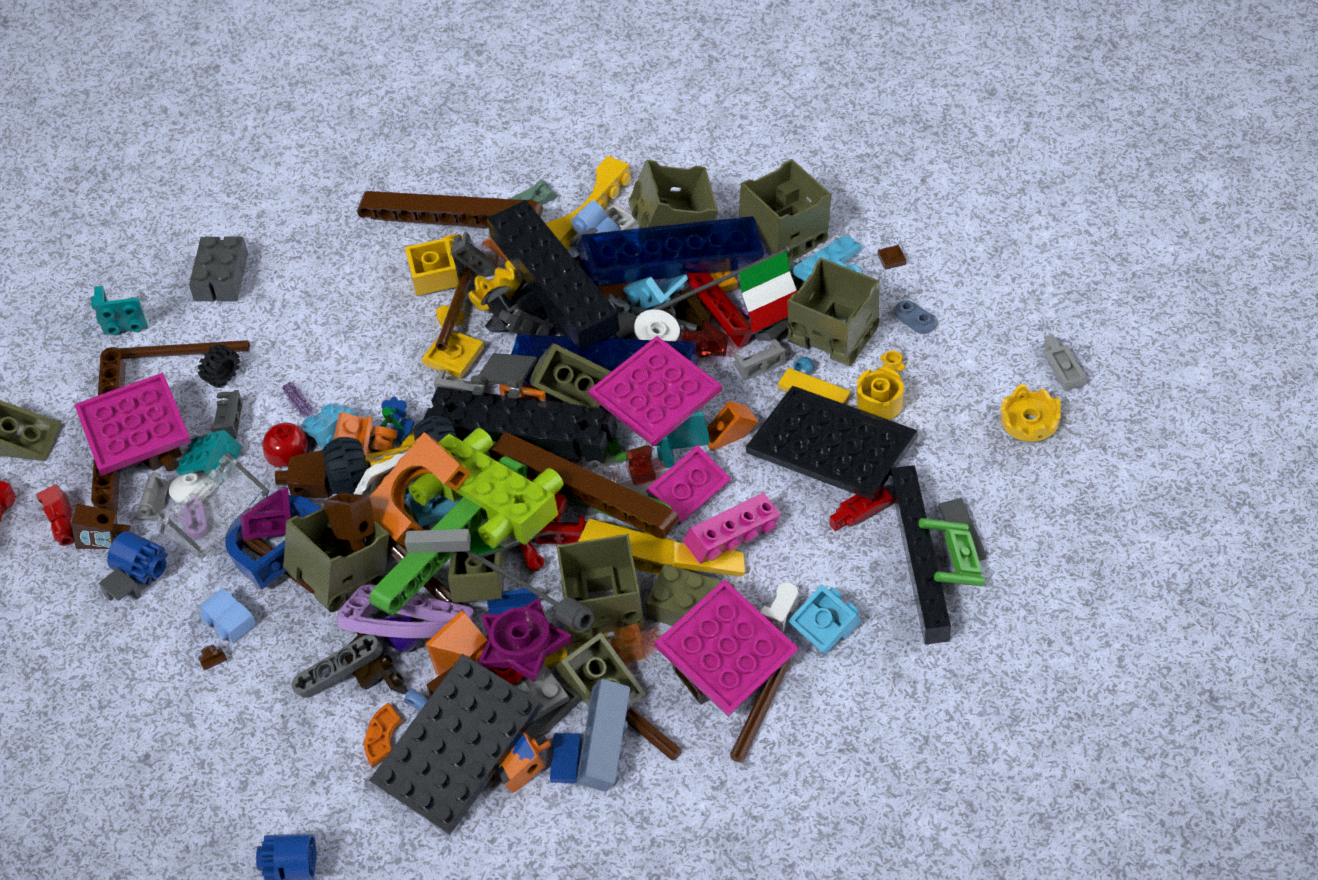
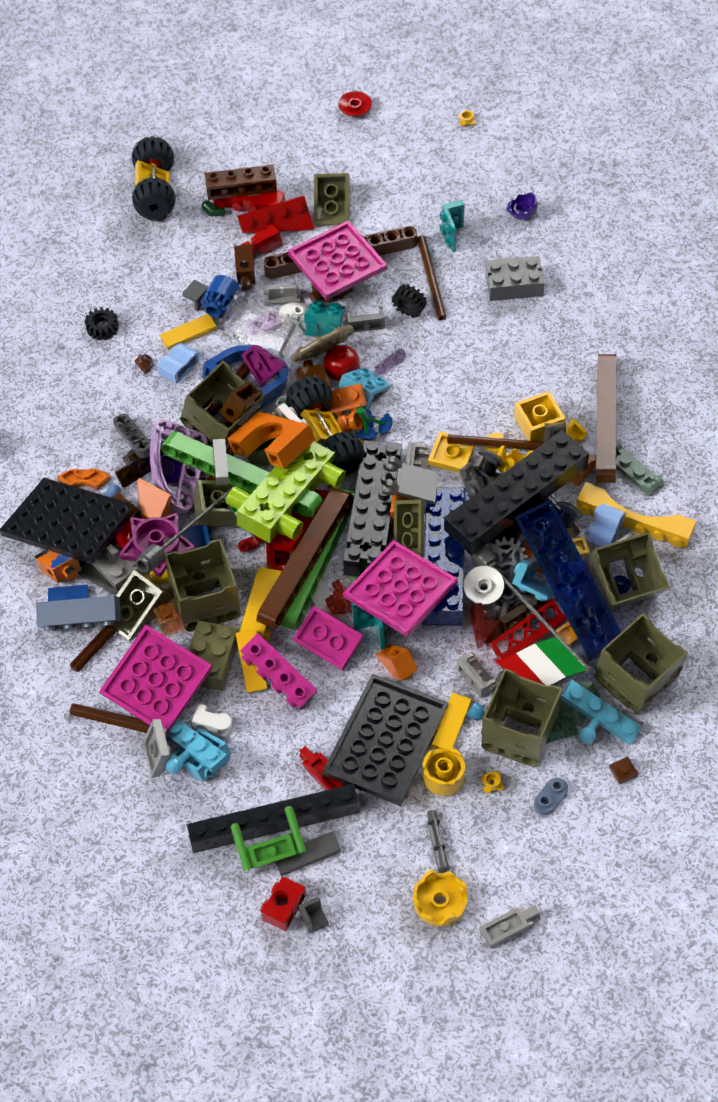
camera: 80 degrees right, 5 degrees up
(25, 478) = (284, 216): none -> red wing
(111, 247) = (523, 207): none -> dark purple hair
(131, 713) = (103, 331): none -> black tyre
(175, 605) = (188, 331): none -> yellow tile
(266, 445) = (322, 344): none -> dark tan plate
(817, 657) = (156, 748): none -> light grey hinge
(823, 615) = (194, 746): none -> medium azure plate
(959, 413) = (437, 842): none -> dark grey piece
(1026, 552) = (283, 915): none -> red brick
(1043, 528) = (313, 915): none -> dark grey panel

